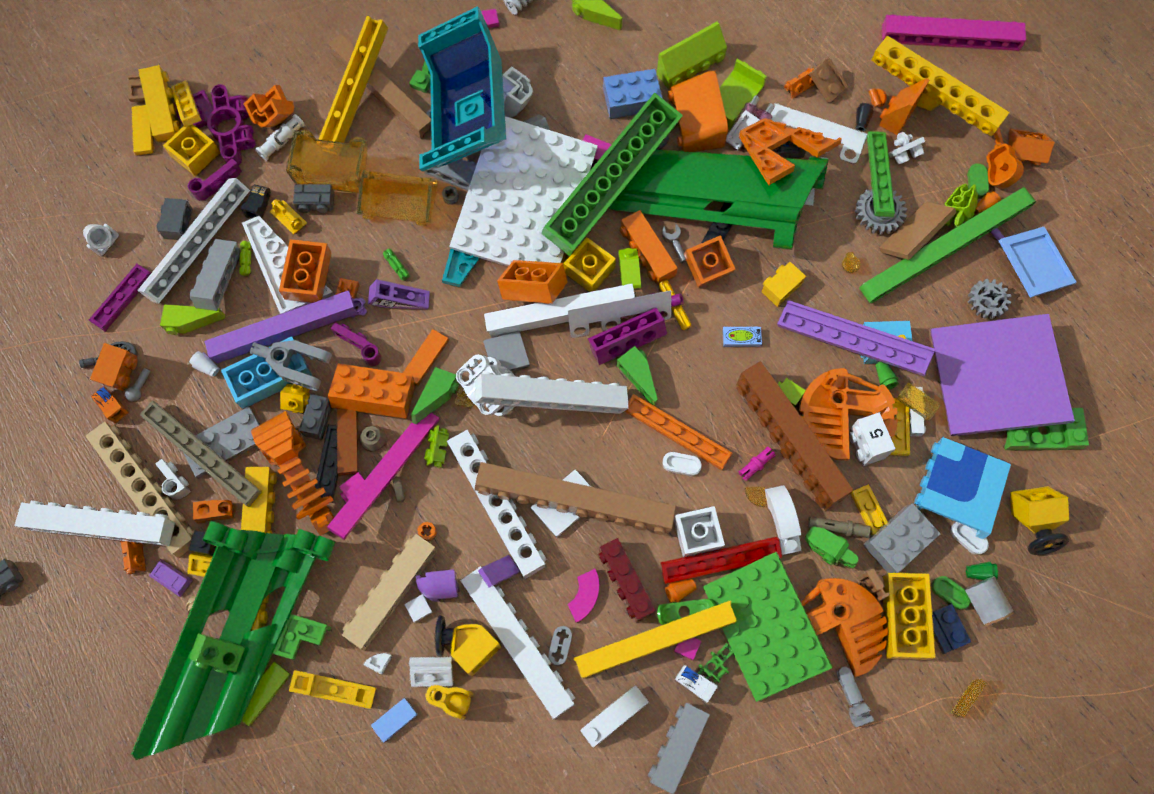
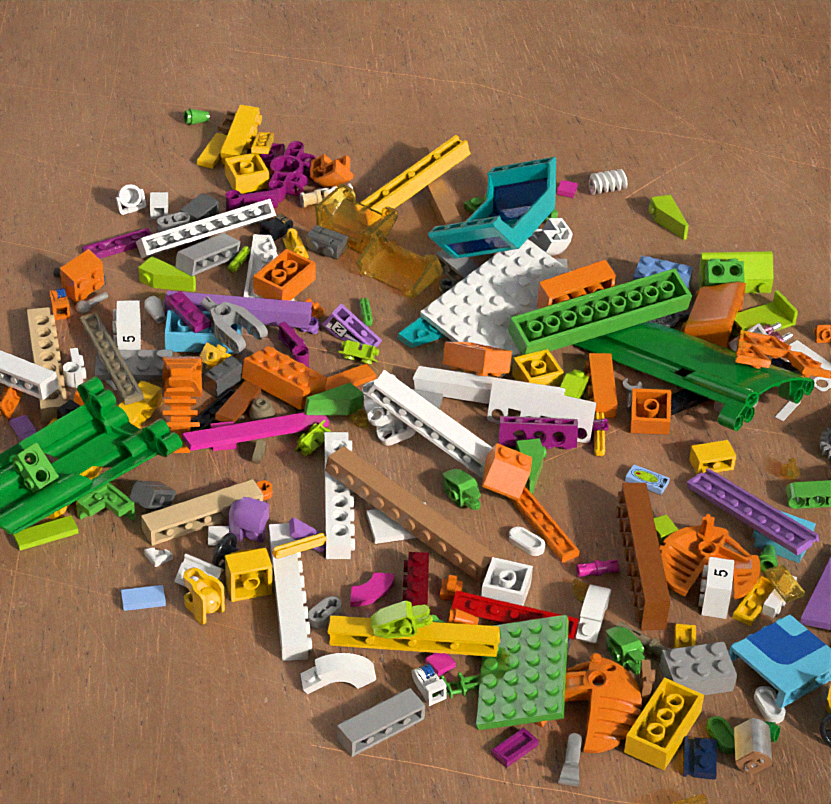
camera: 25 degrees right, 30 degrees down
(100, 95) = (194, 116): none -> bright green cone
(131, 230) = (158, 204): none -> white brick
(152, 251) = (172, 221): none -> light grey beam
(193, 406) = (127, 325): none -> white brick
(242, 364) = (188, 312): none -> magenta plate
(332, 689) = (105, 555): yellow slope -> none
(336, 603) = (152, 494): none -> dark grey brick
(428, 320) = (351, 350): none -> lime hinge
(503, 594) = (299, 545): none -> yellow axle
(581, 160) = (575, 284): none -> orange brick
(598, 438) = (461, 488): none -> bright green hinge
(632, 406) = (506, 471): none -> slope
(644, 644) = (400, 620): none -> lime hinge
(650, 557) = (449, 588): none -> orange tile
(689, 70) = (724, 273): none -> bright green brick
(798, 705) = (514, 747): none -> magenta tile

